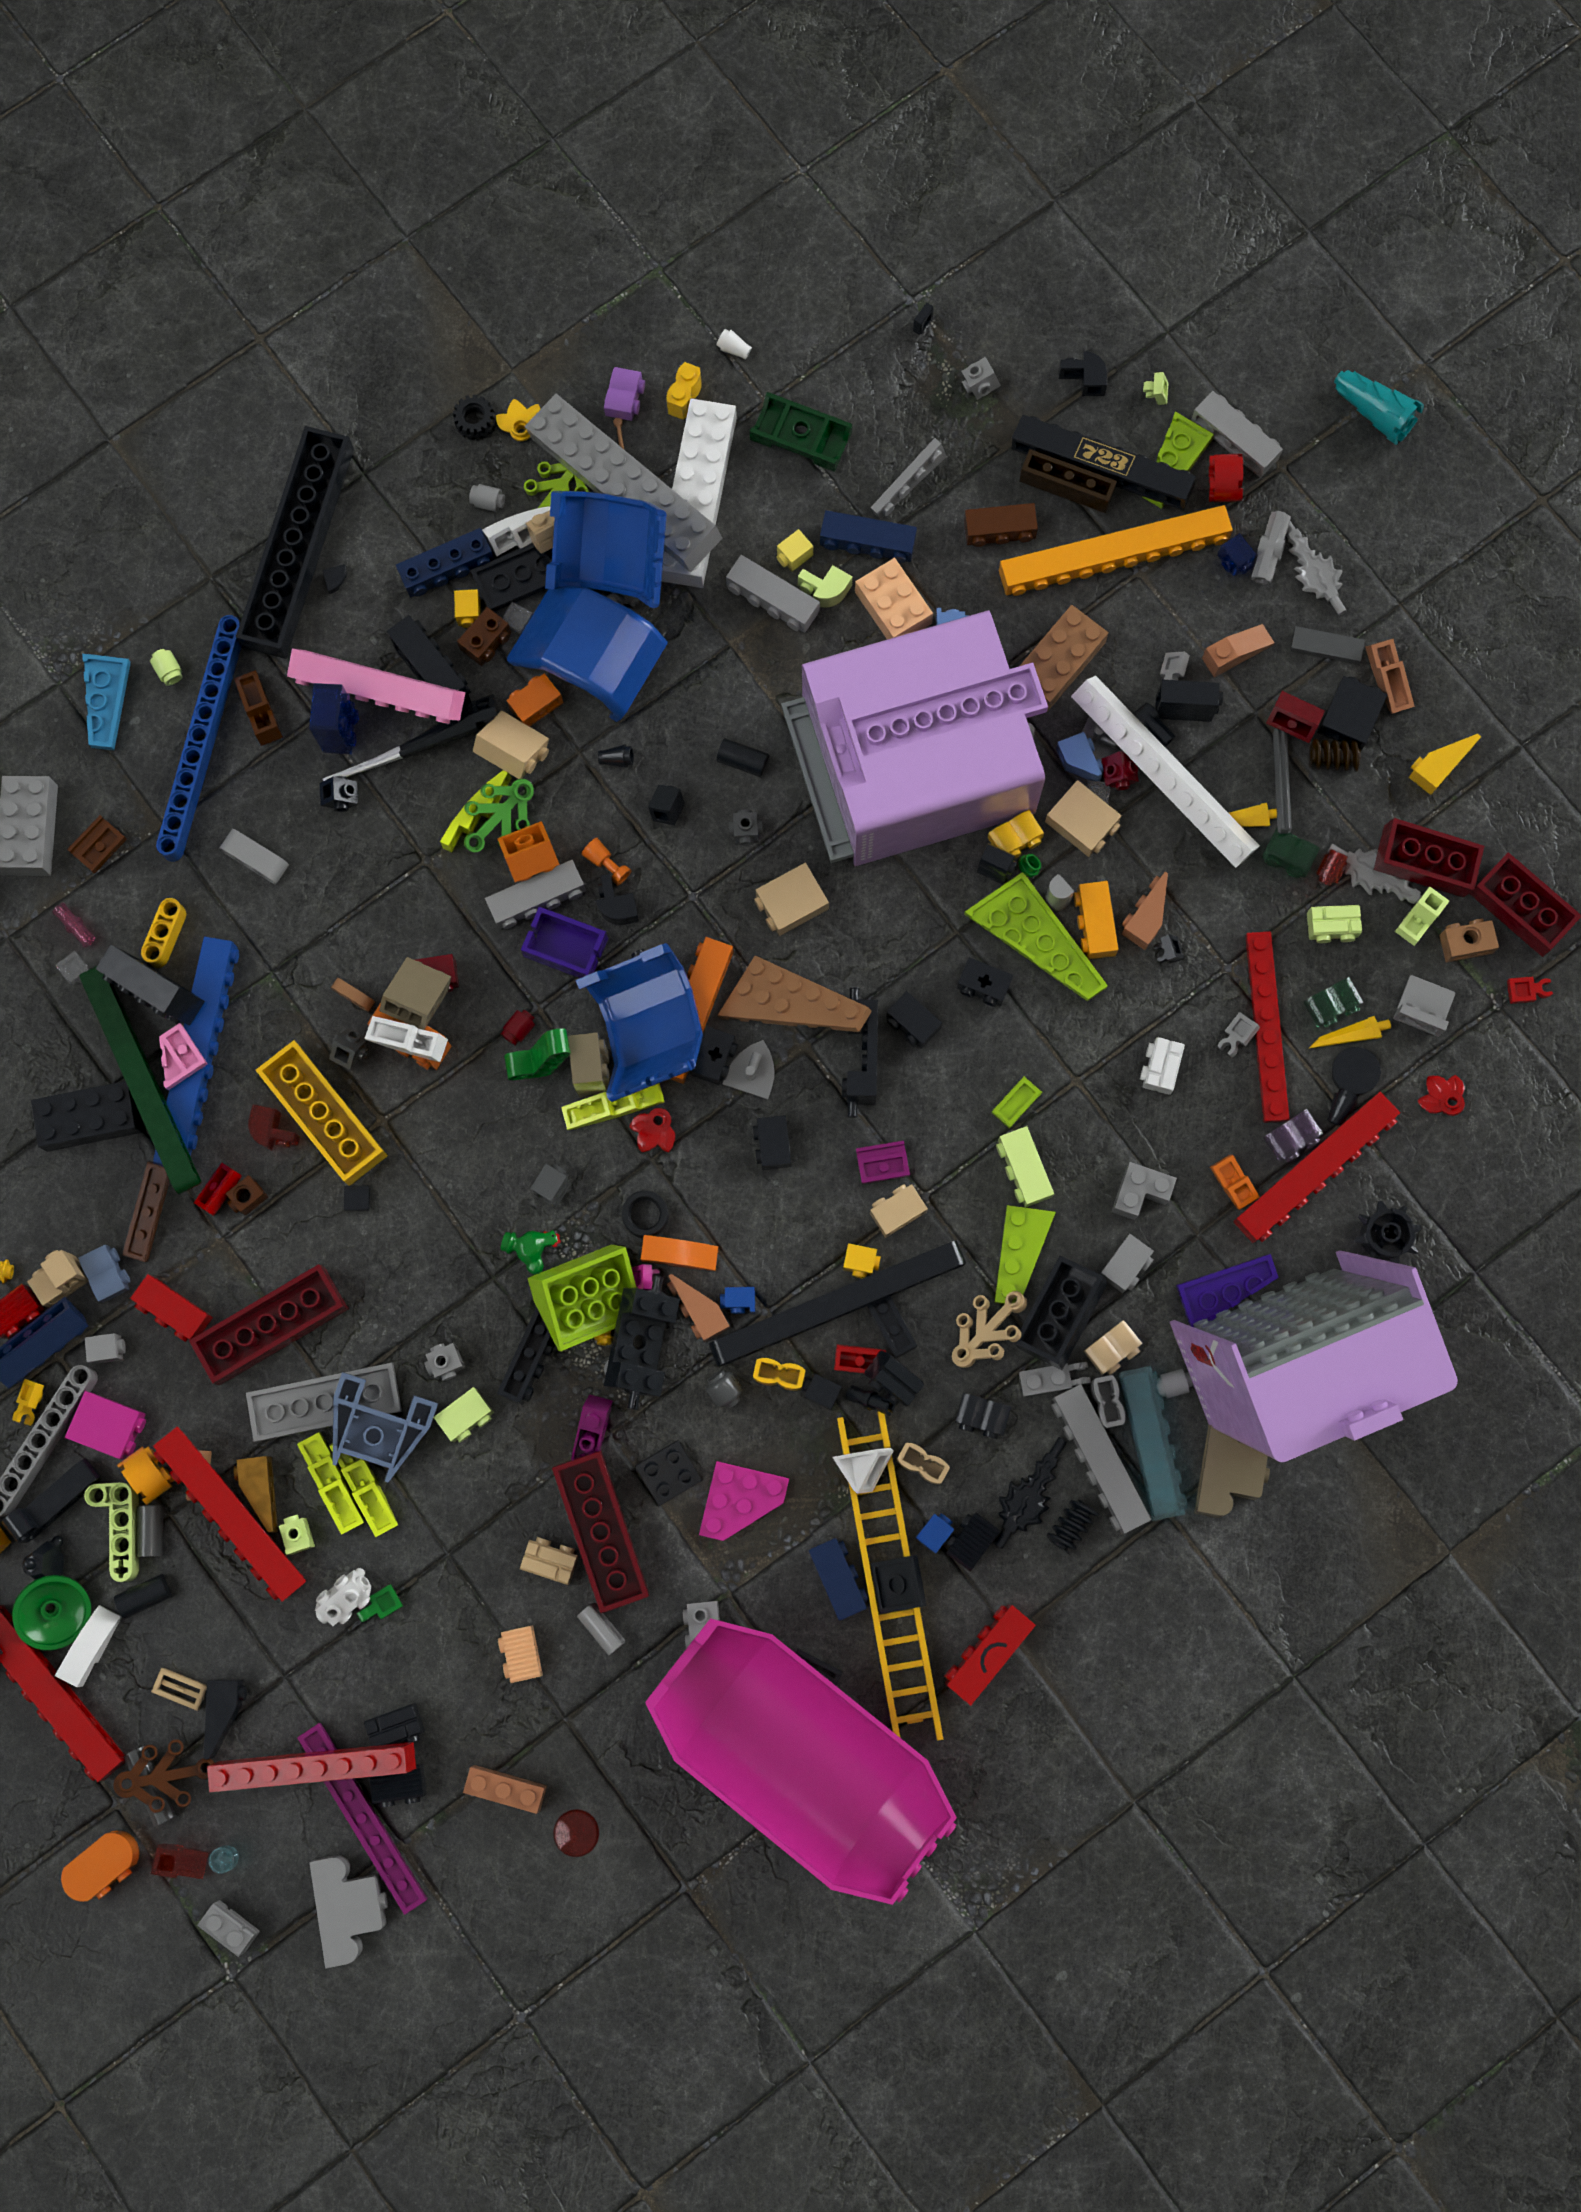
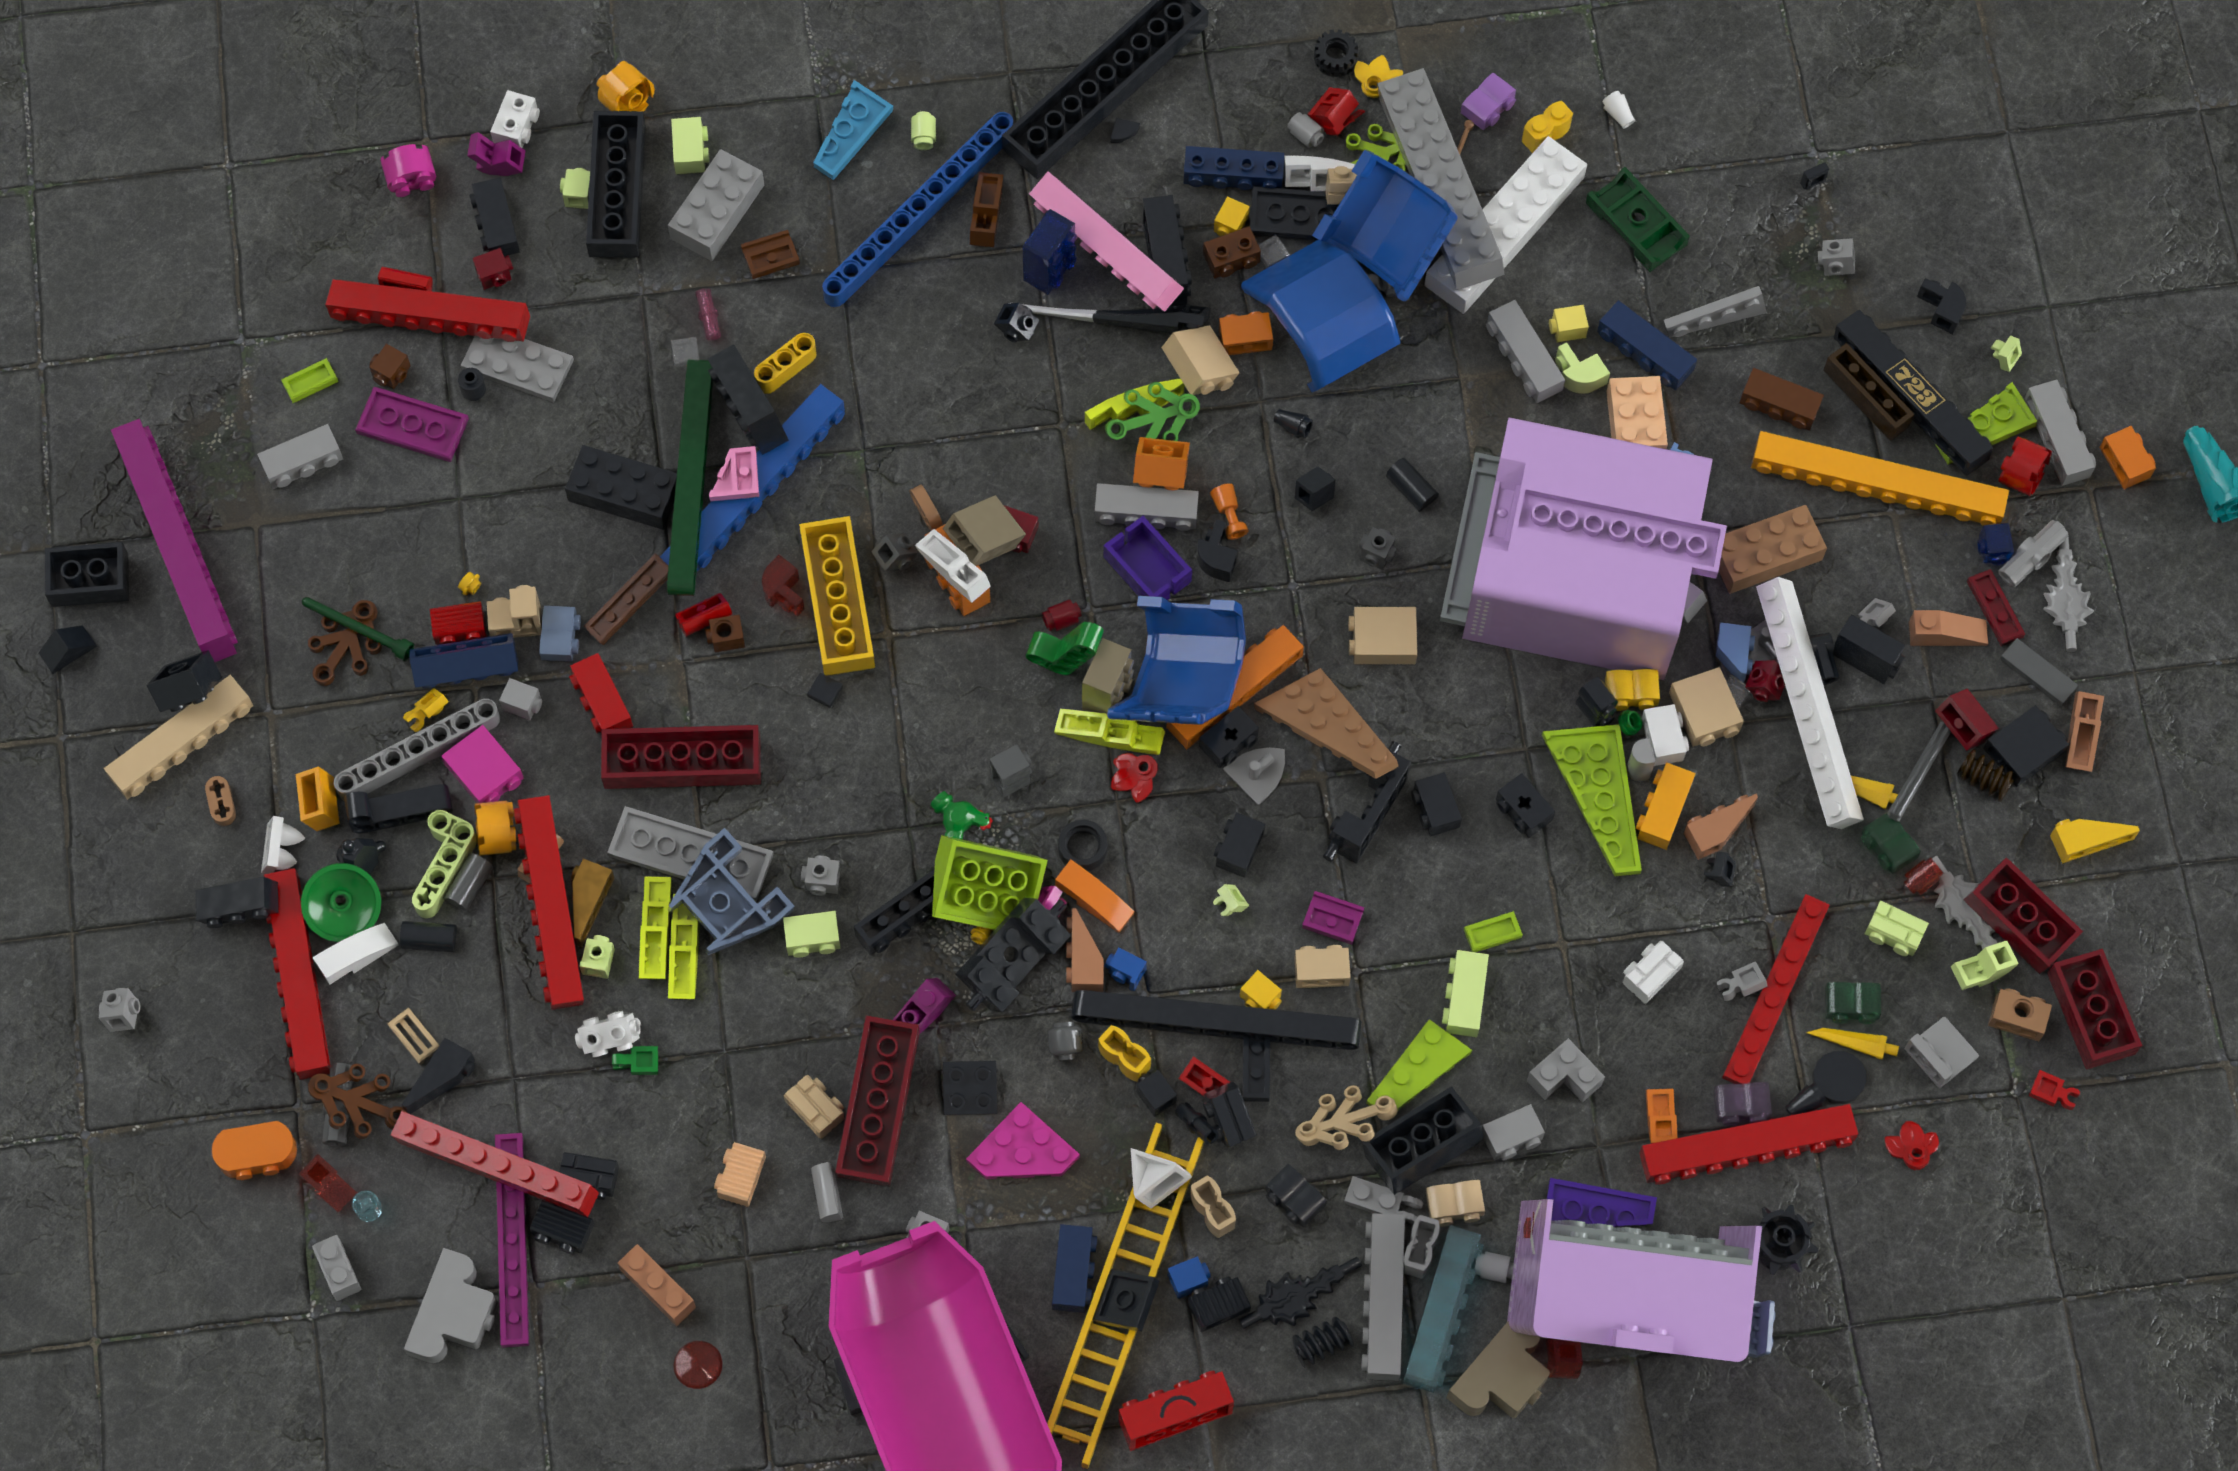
camera: 25 degrees right, 10 degrees down
(254, 856) = (906, 338): light grey beam -> none
(502, 468) = (1334, 110): none -> red piece
(793, 1192) = (1233, 899): none -> yellowish green tile
(1062, 859) = (1663, 729): none -> white brick
(1264, 609) = (1995, 607): none -> dark red tile
(1300, 426) = (2128, 457): none -> orange brick

